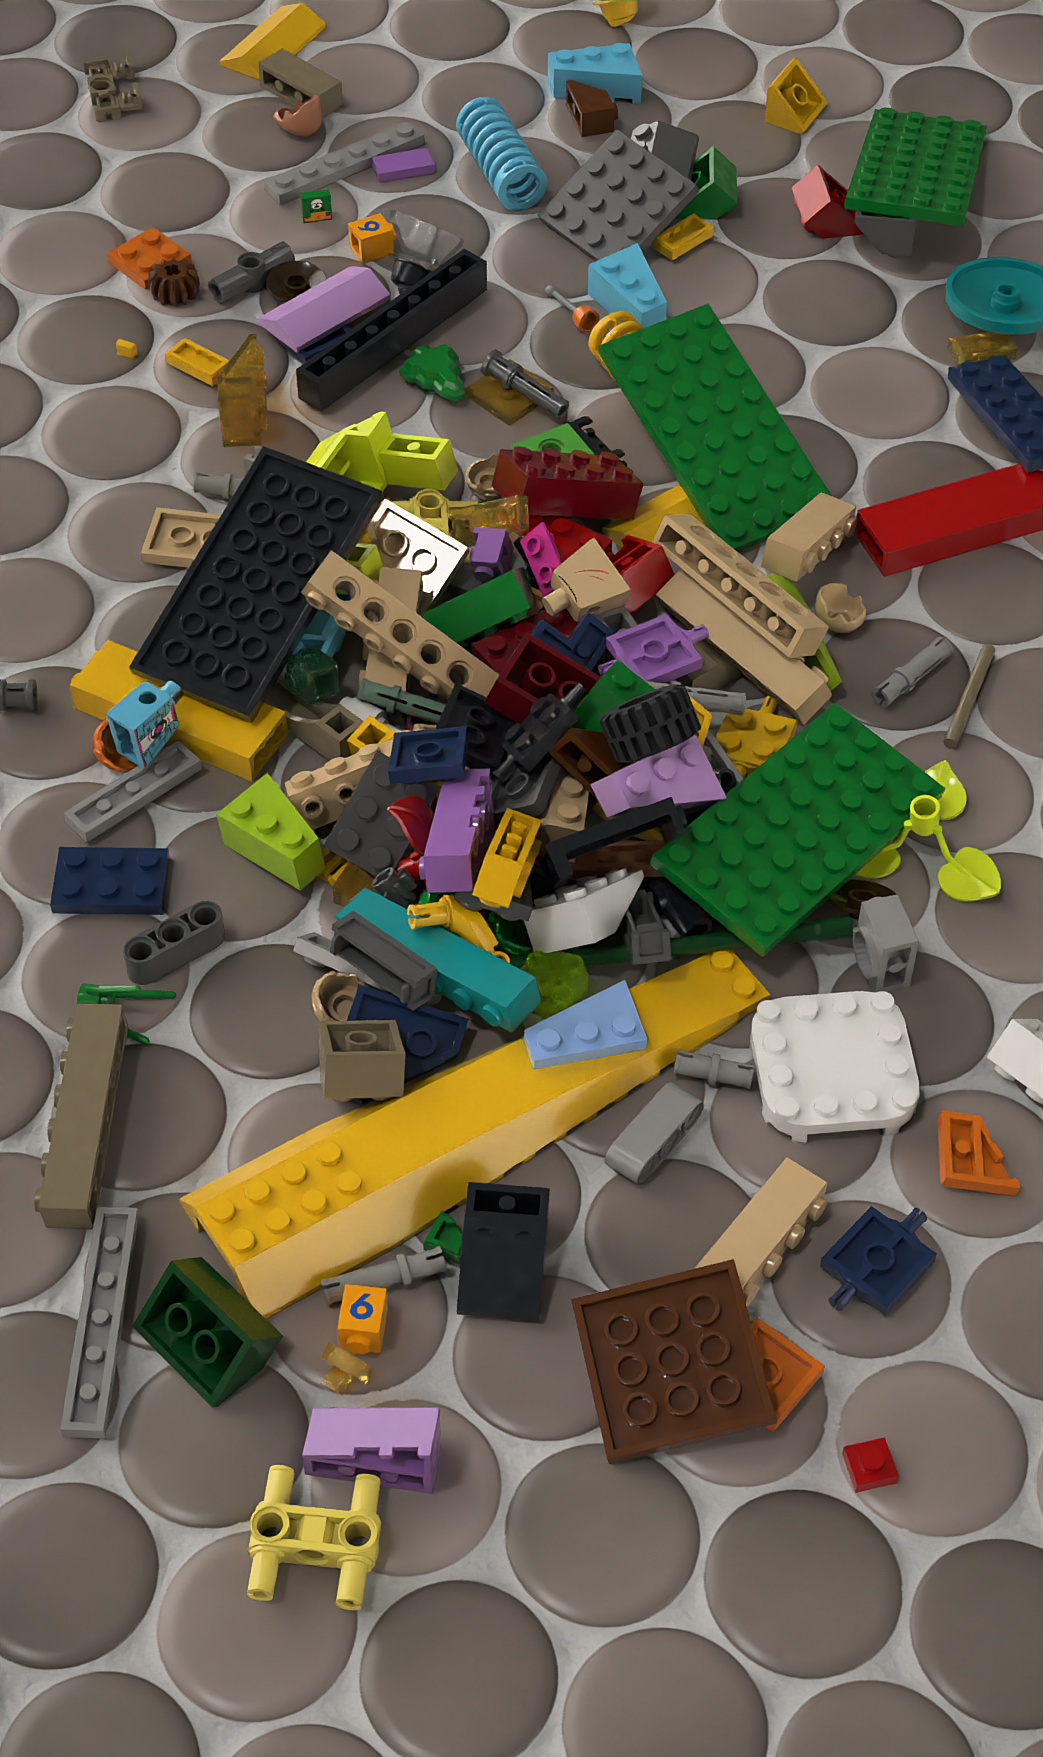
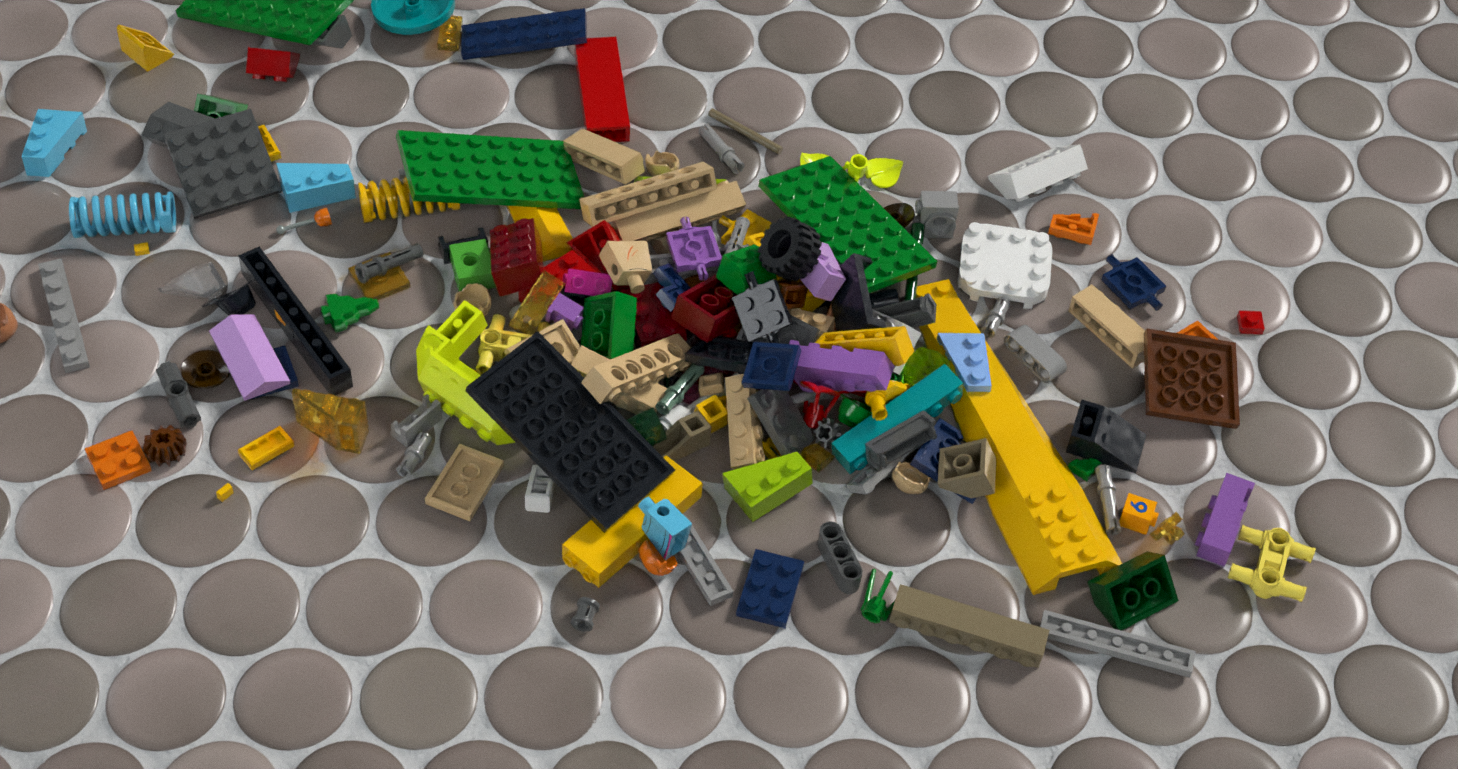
camera: 80 degrees left, 0 degrees up
(316, 206) = (117, 339): green tile -> none
(371, 238) = (175, 314): light orange brick -> none
(403, 165) = (87, 280): medium lavender tile -> none
(470, 192) = (141, 249): none -> yellow piece
(590, 109) = (86, 156): reddish brown slope -> none

